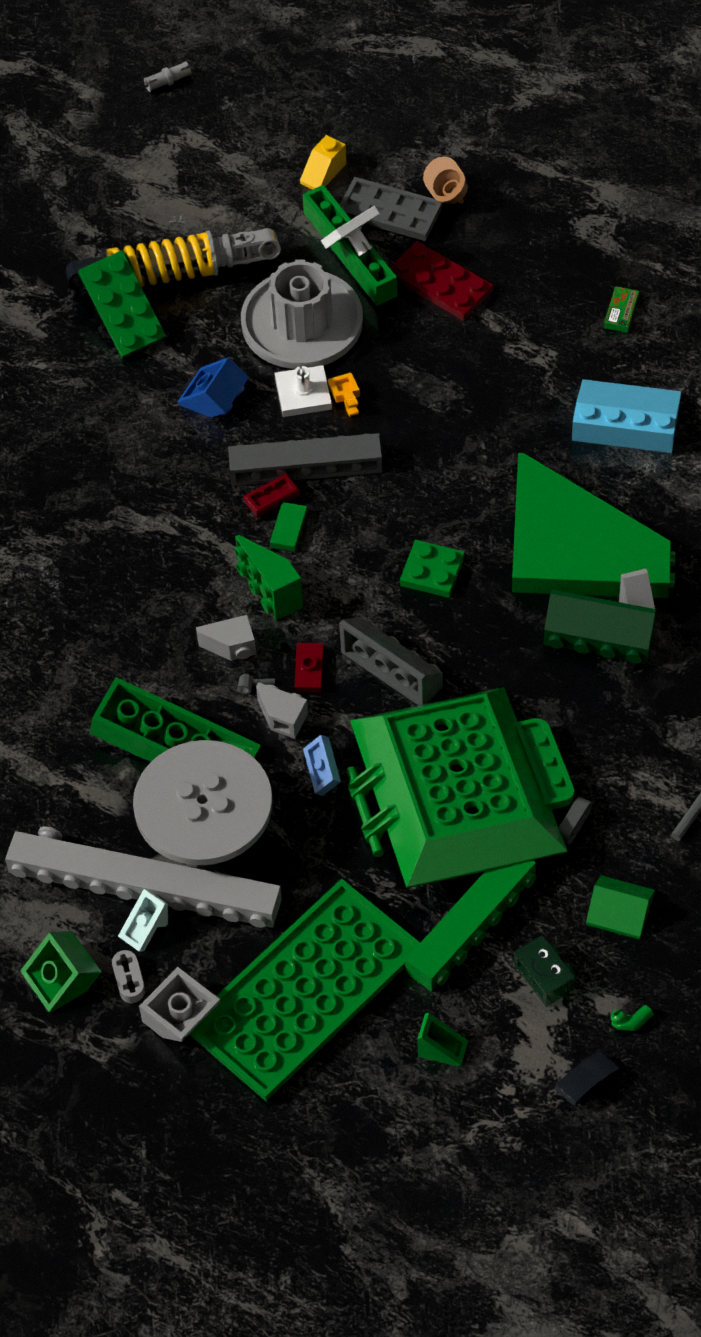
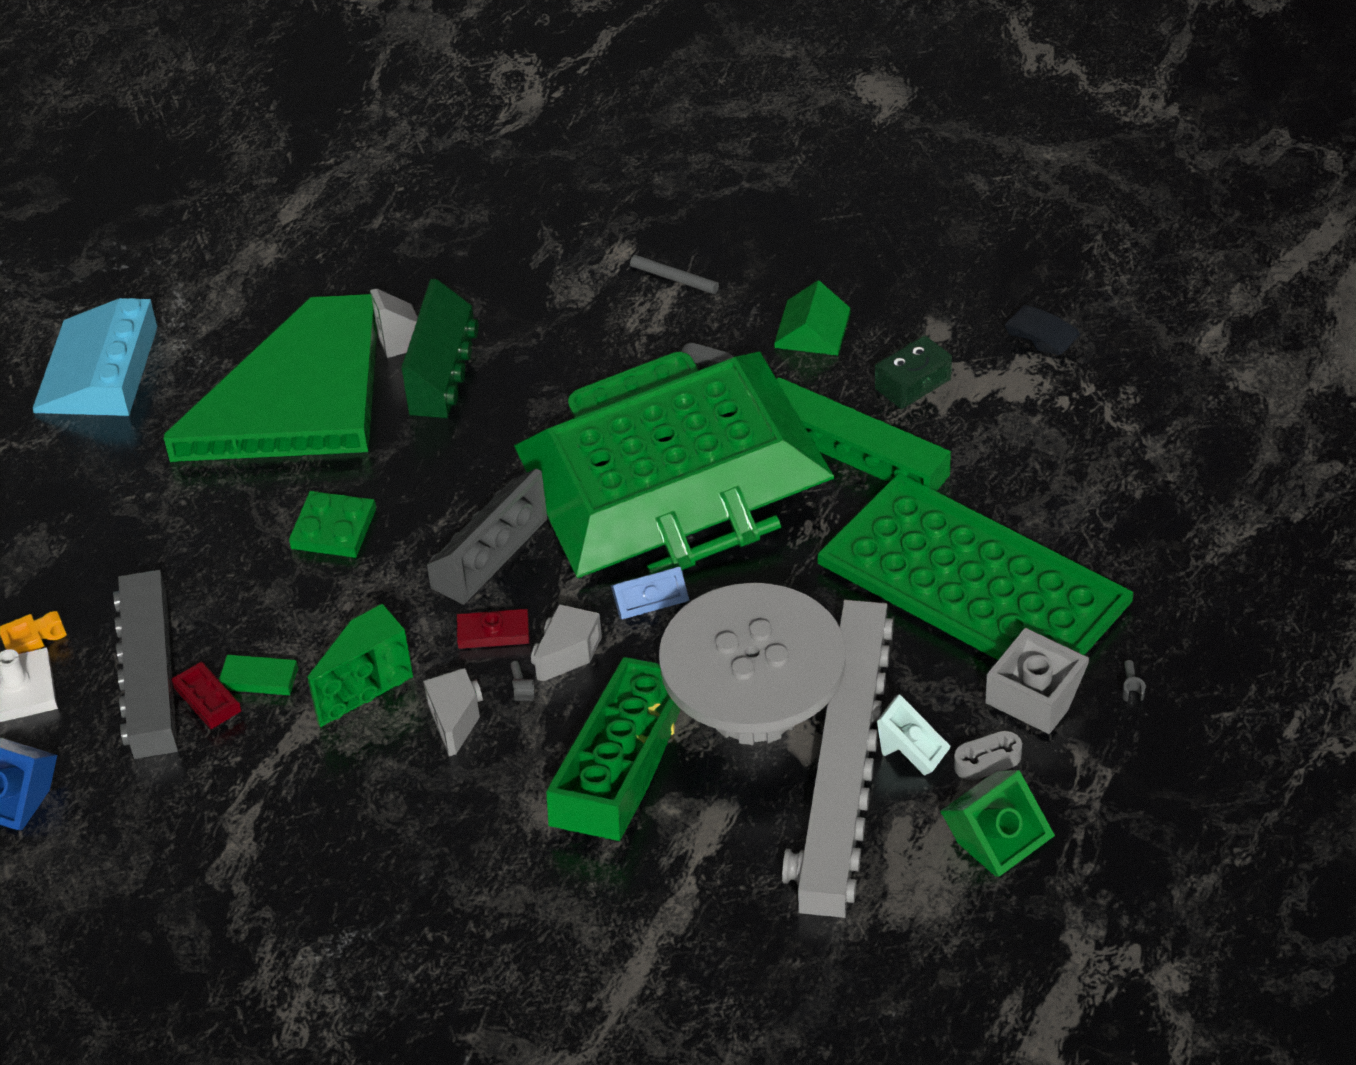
camera: 95 degrees left, 10 degrees down
(180, 1087) = (1132, 682): none -> dark grey hand
(440, 1042) = (1022, 456): green slope -> none
(625, 1022) = (960, 305): green arm -> none

